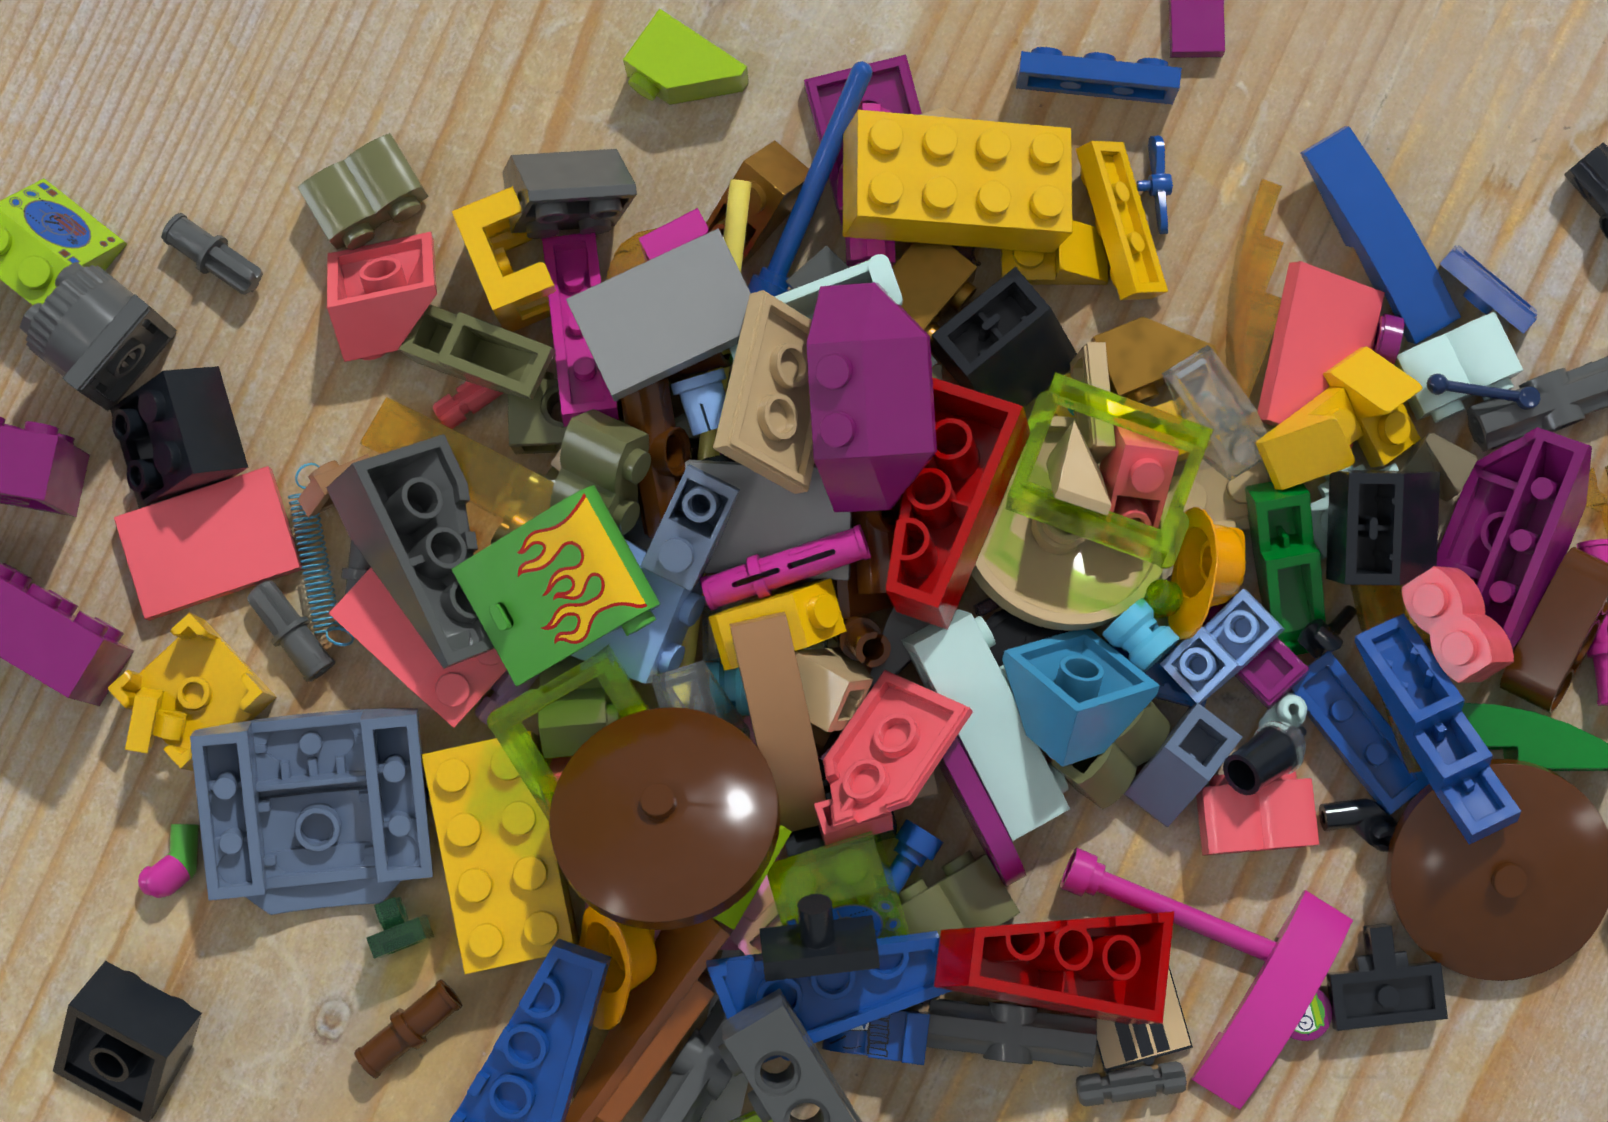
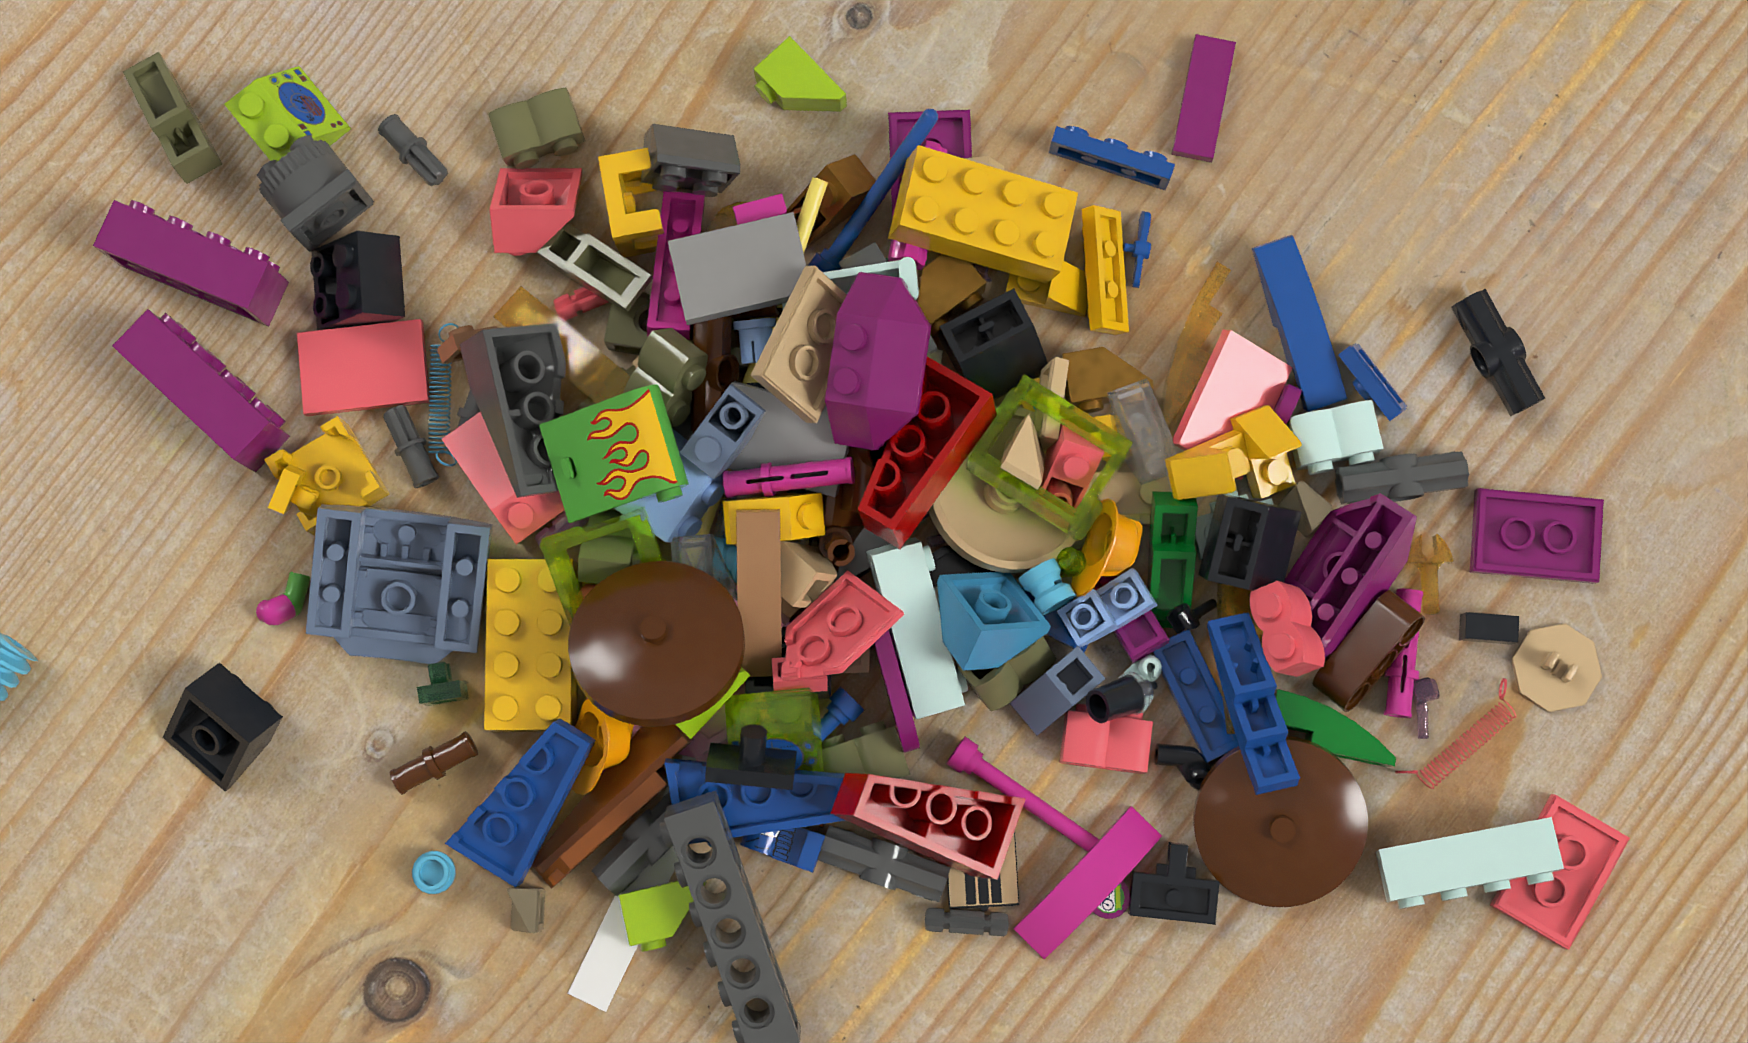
camera: 10 degrees right, 0 degrees up
(1525, 398) = (1380, 470): dark blue hinge -> none

